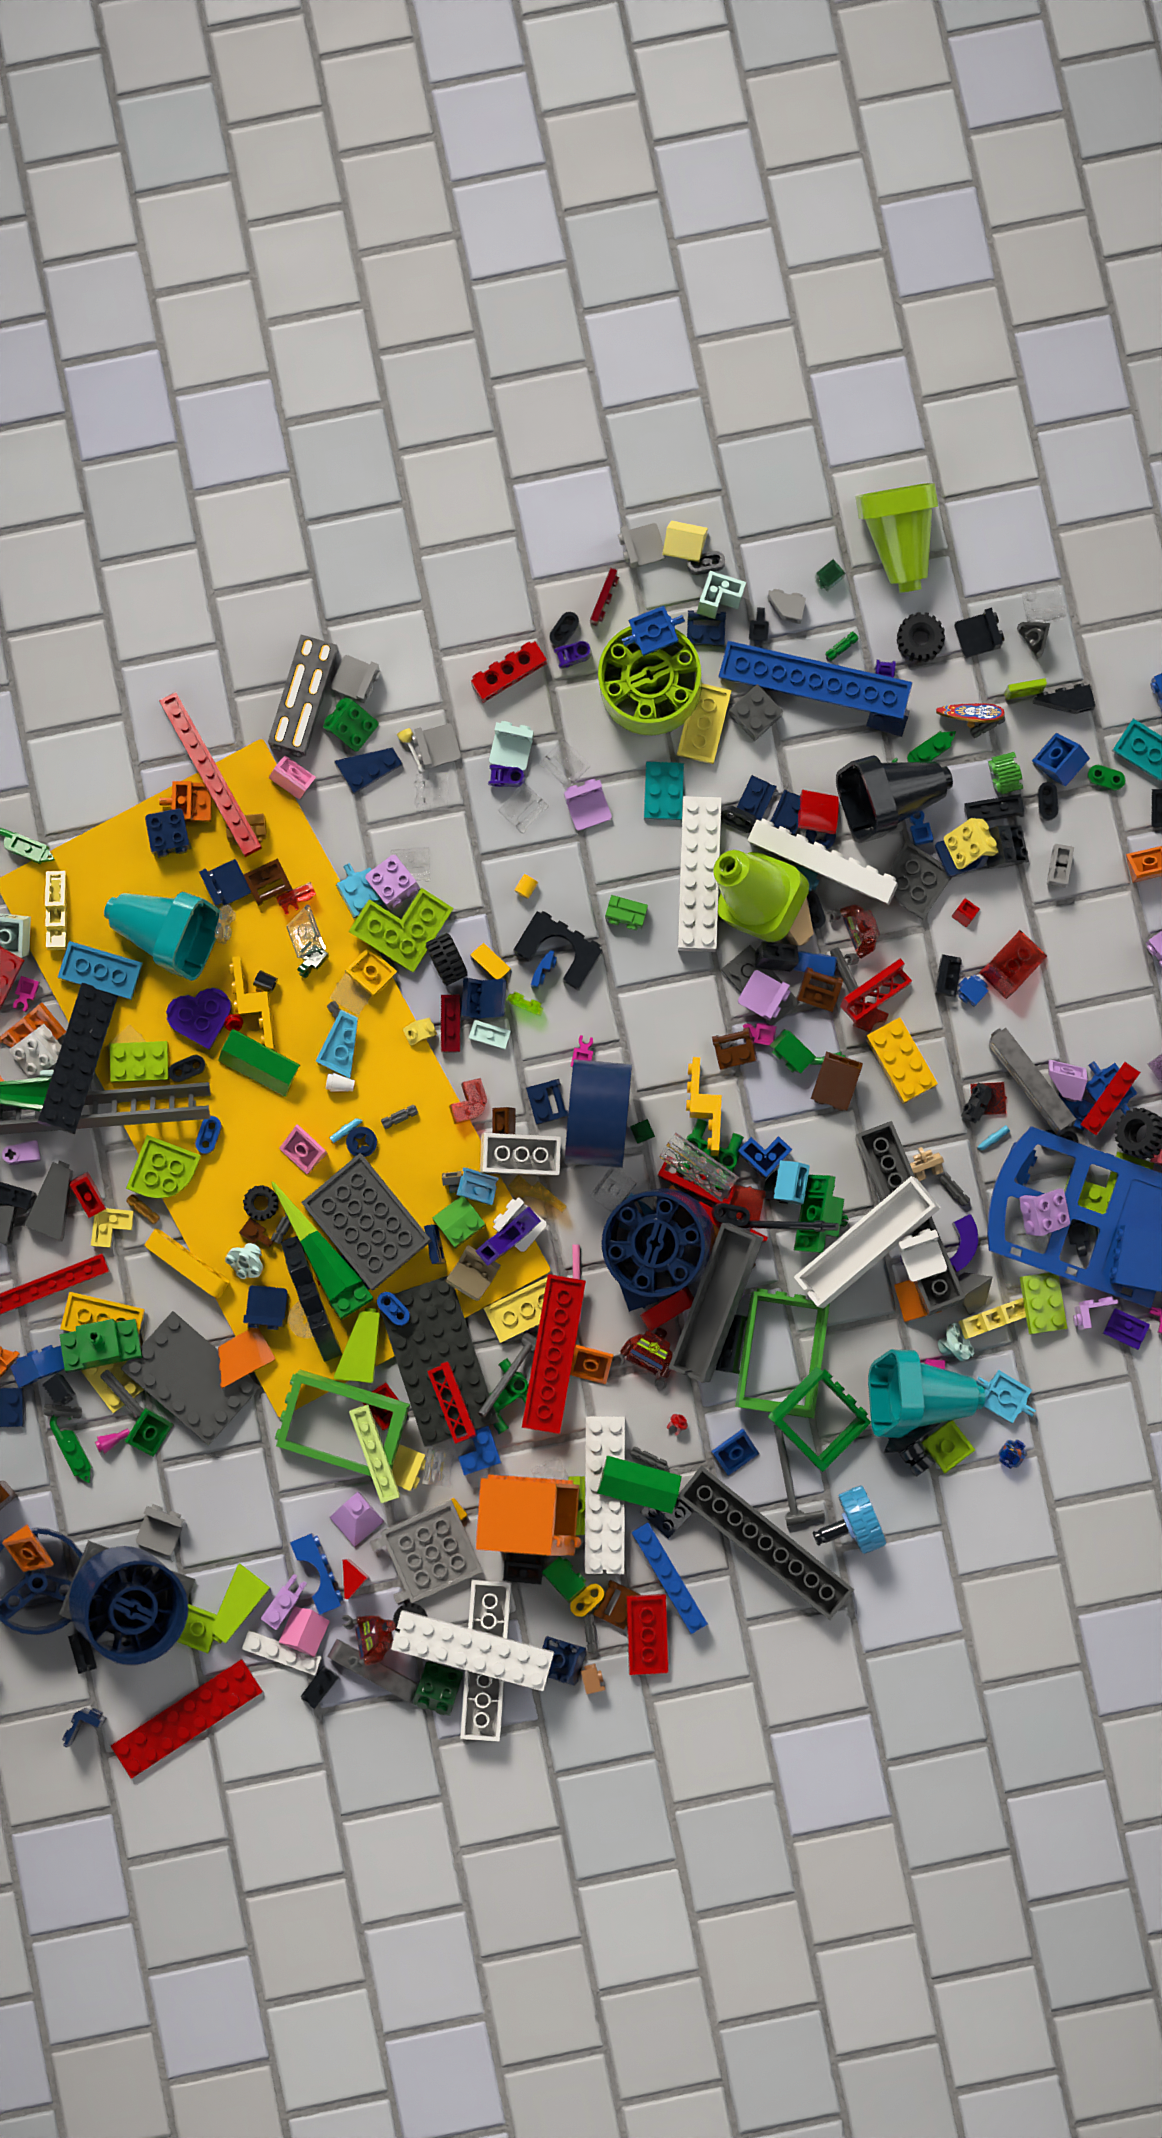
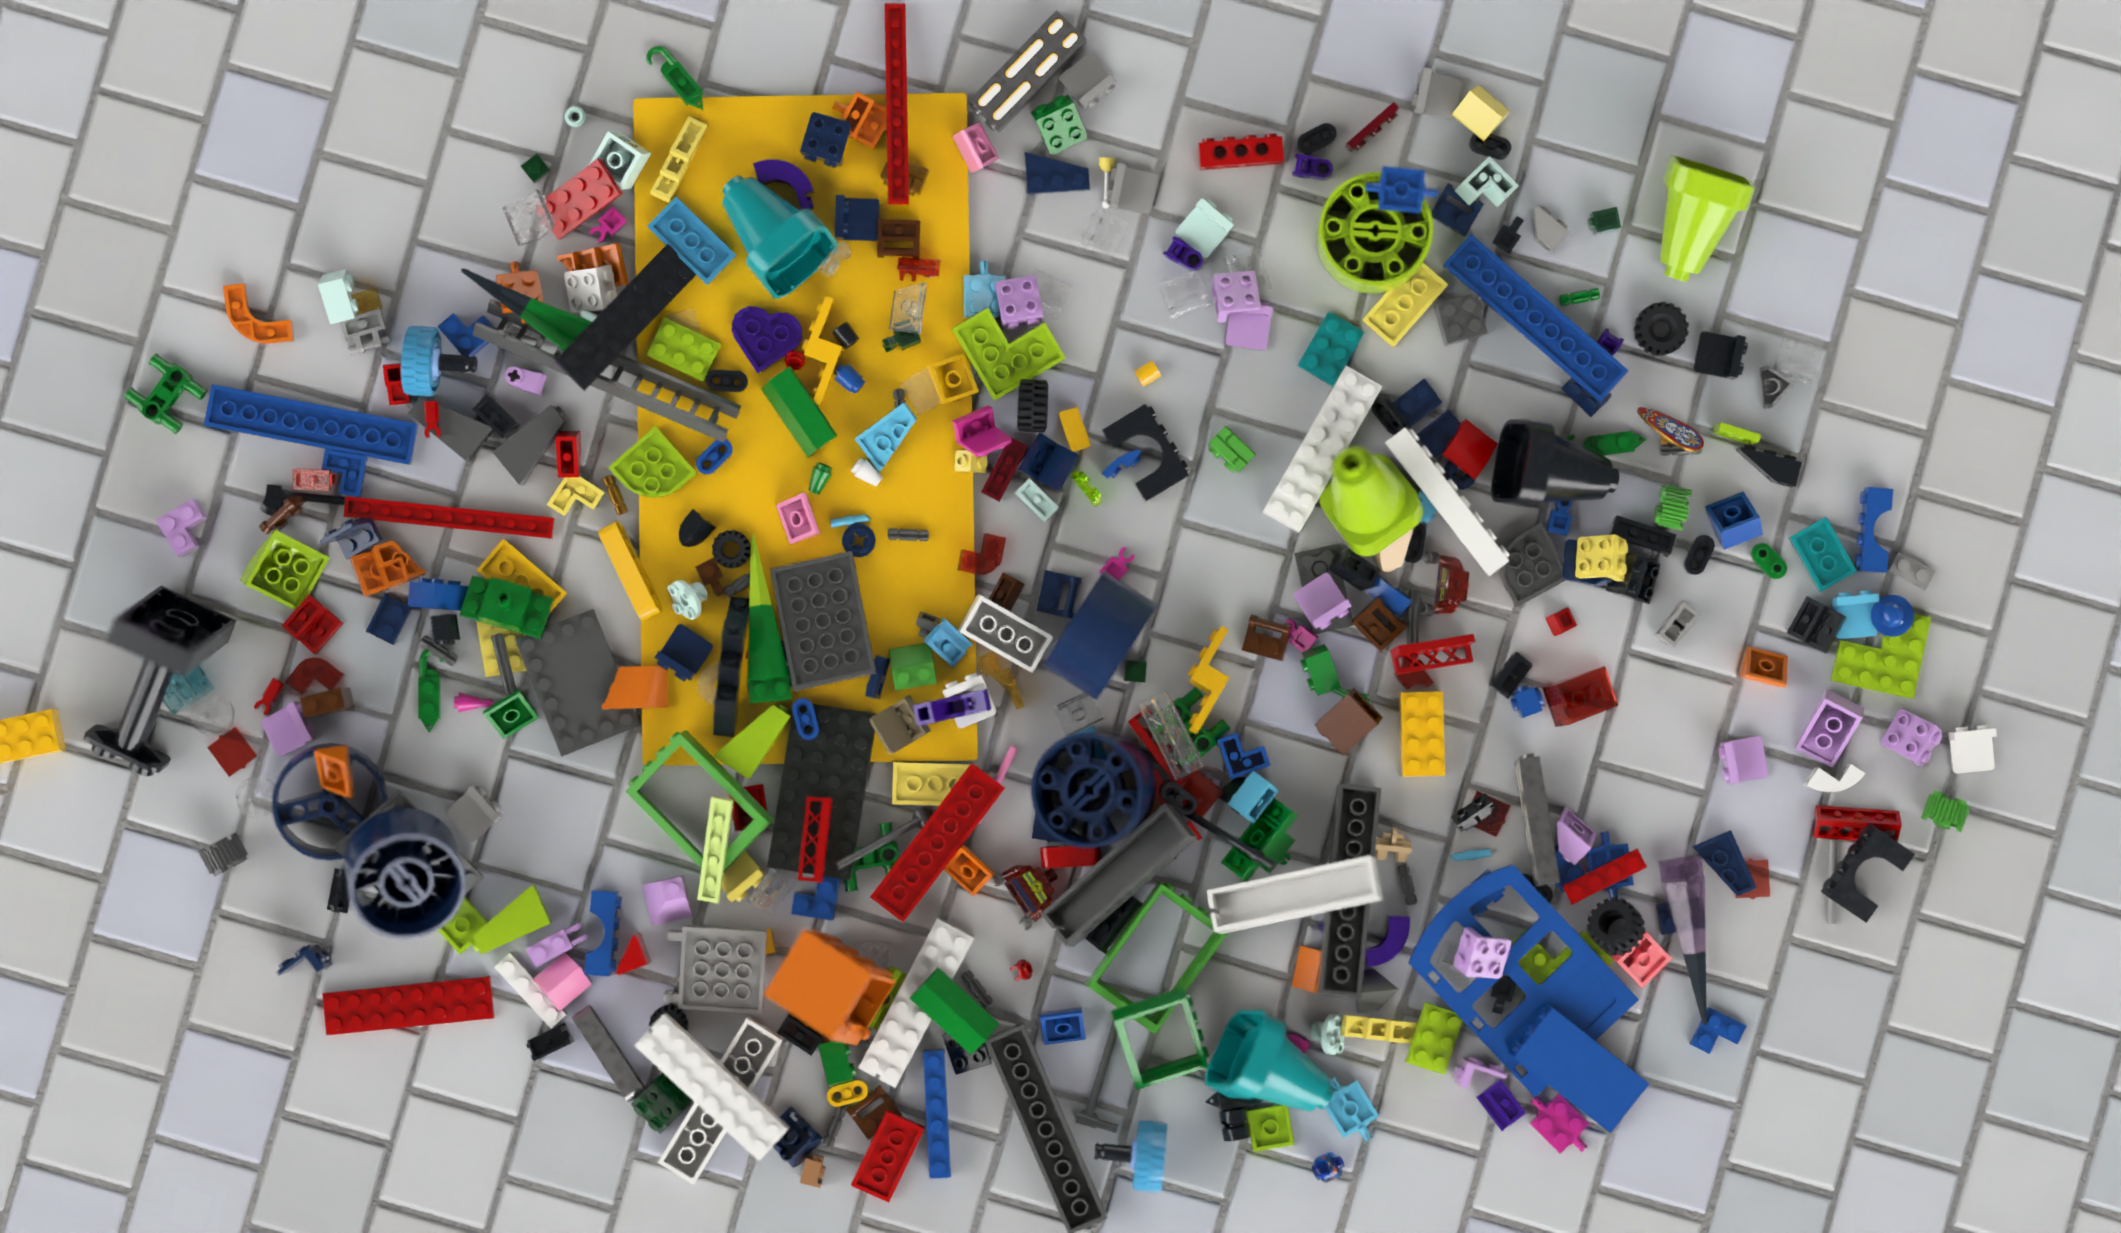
camera: 20 degrees right, 5 degrees up
(148, 876) = (781, 171): none -> dark purple arch
(222, 1202) = (694, 529): none -> black brick
(286, 1015) = (849, 378): none -> blue brick
(303, 1107) = (820, 475): none -> green cone
(373, 1639) = (623, 1025): clear red torso -> none
(413, 1004) = (978, 432): none -> dark pink bracket
(562, 785) = (1235, 293): none -> lavender bracket
(922, 1255) = (1340, 936): white bracket -> none

